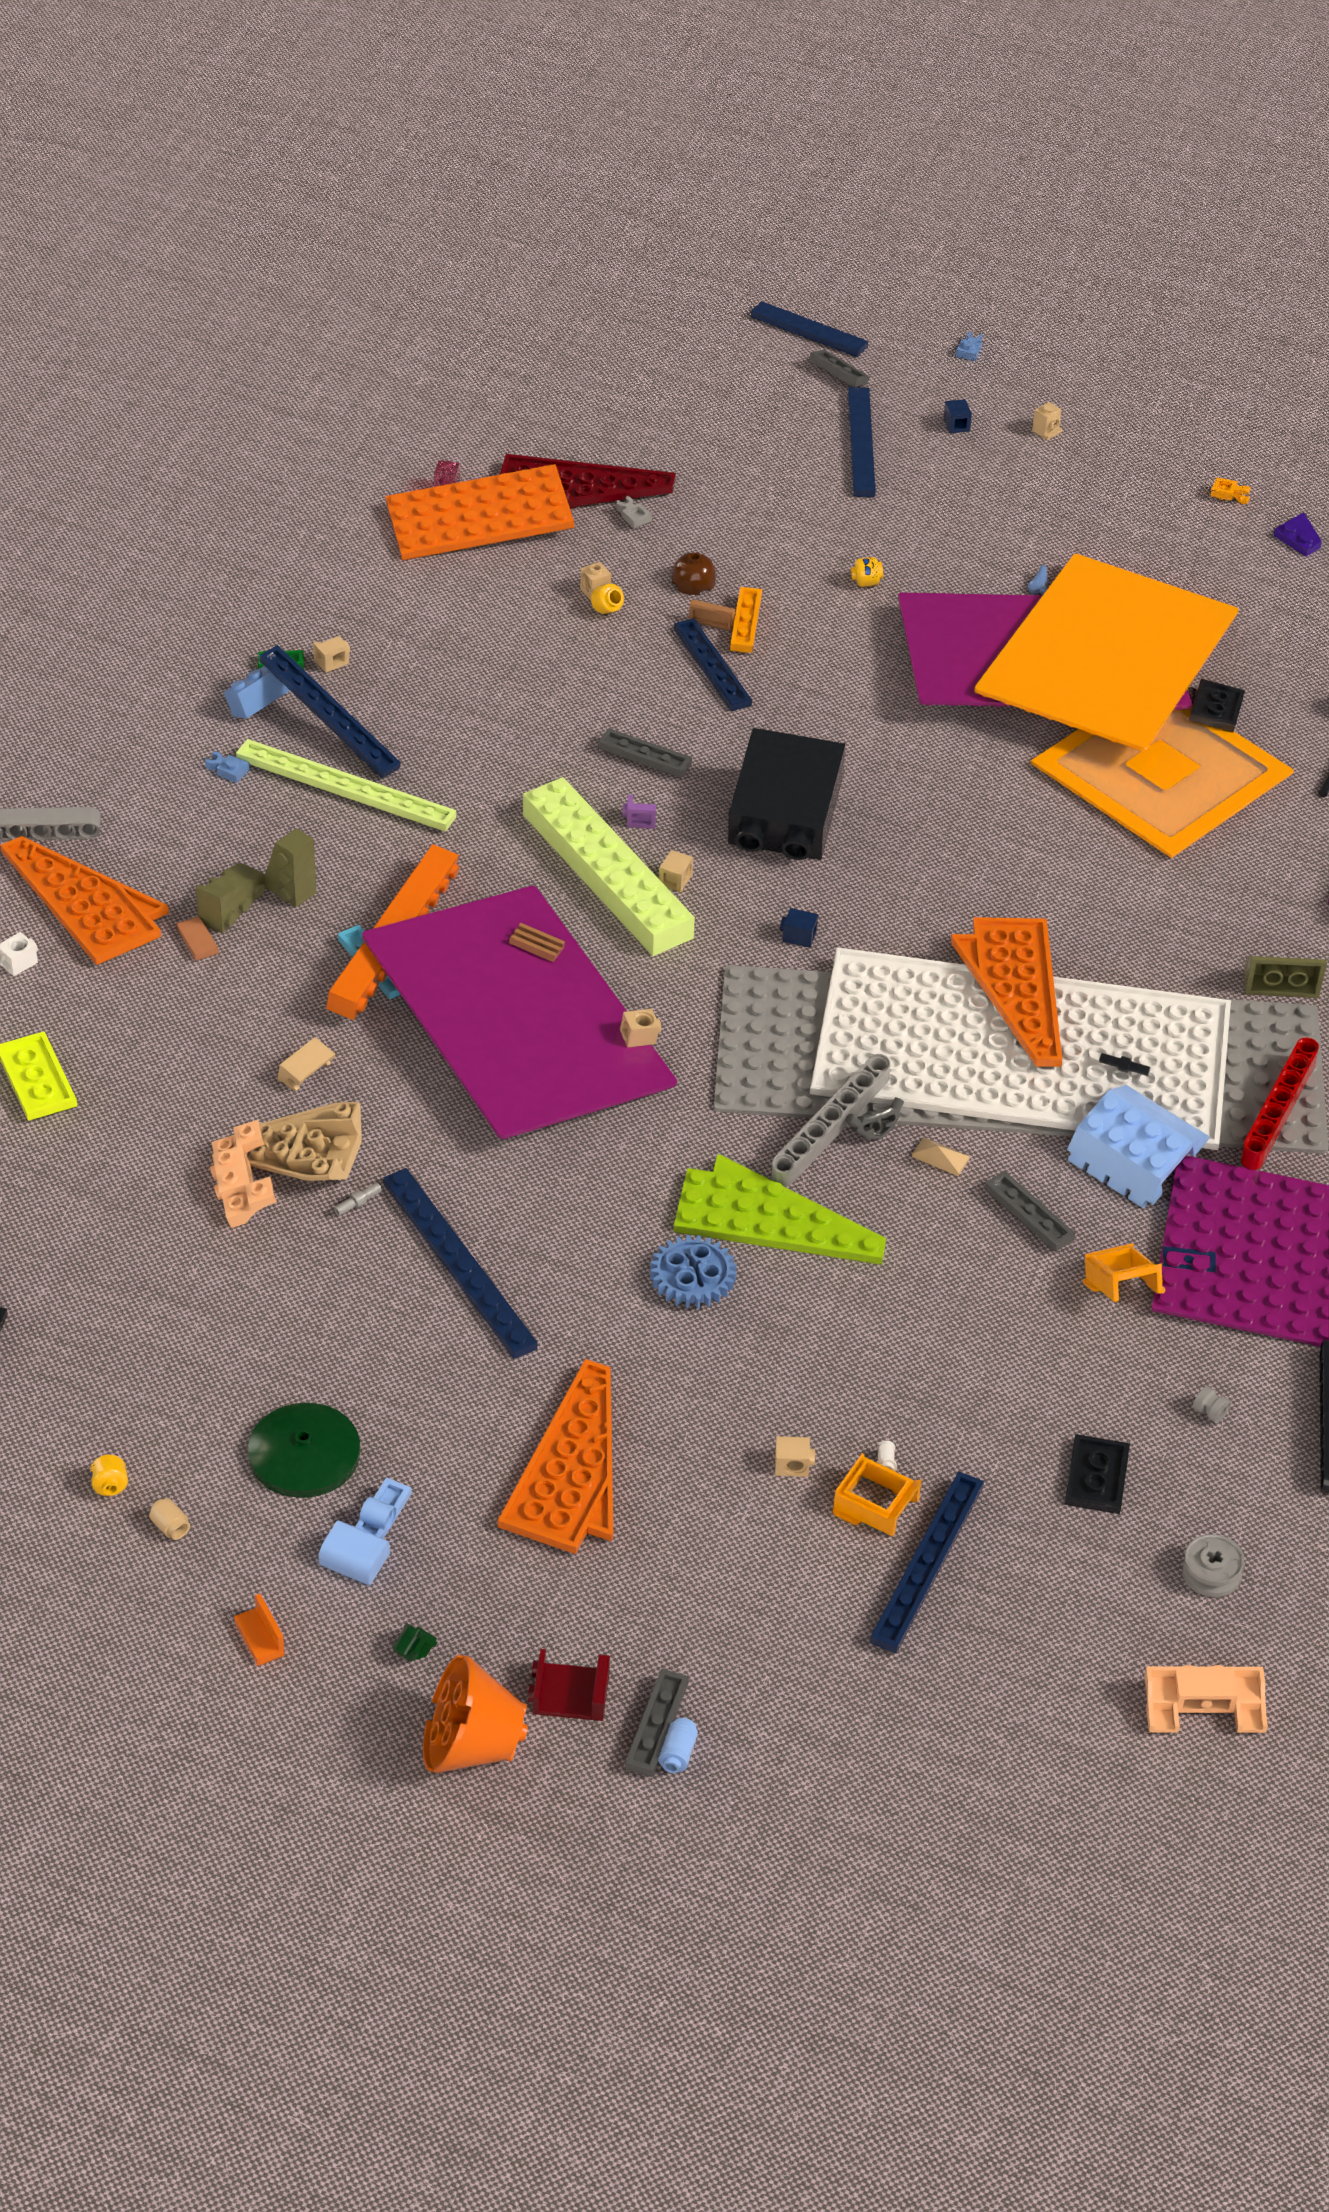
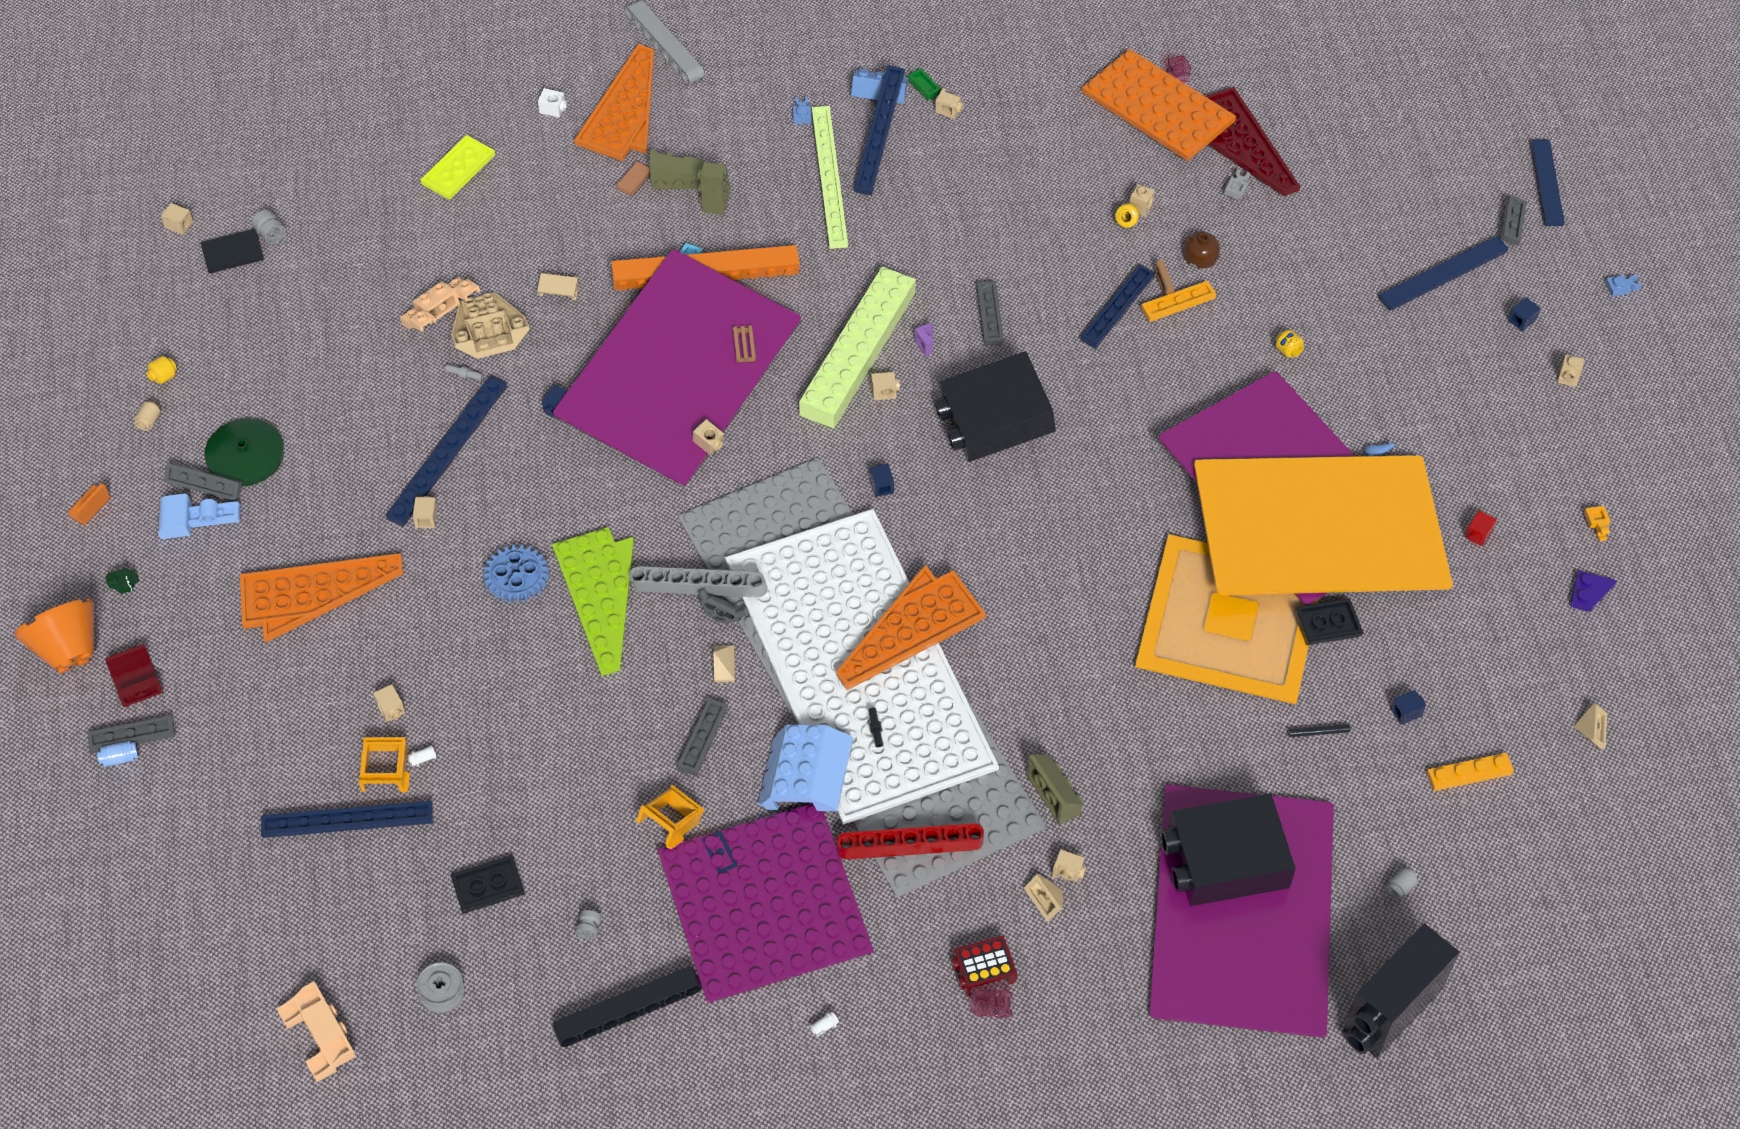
camera: 60 degrees right, 10 degrees up
(321, 1503) = (202, 481): none -> dark grey plate
(474, 1135) = (552, 399): none -> dark blue brick
(541, 1314) = (425, 512): none -> tan brick
(1183, 561) = (1480, 528): none -> red brick

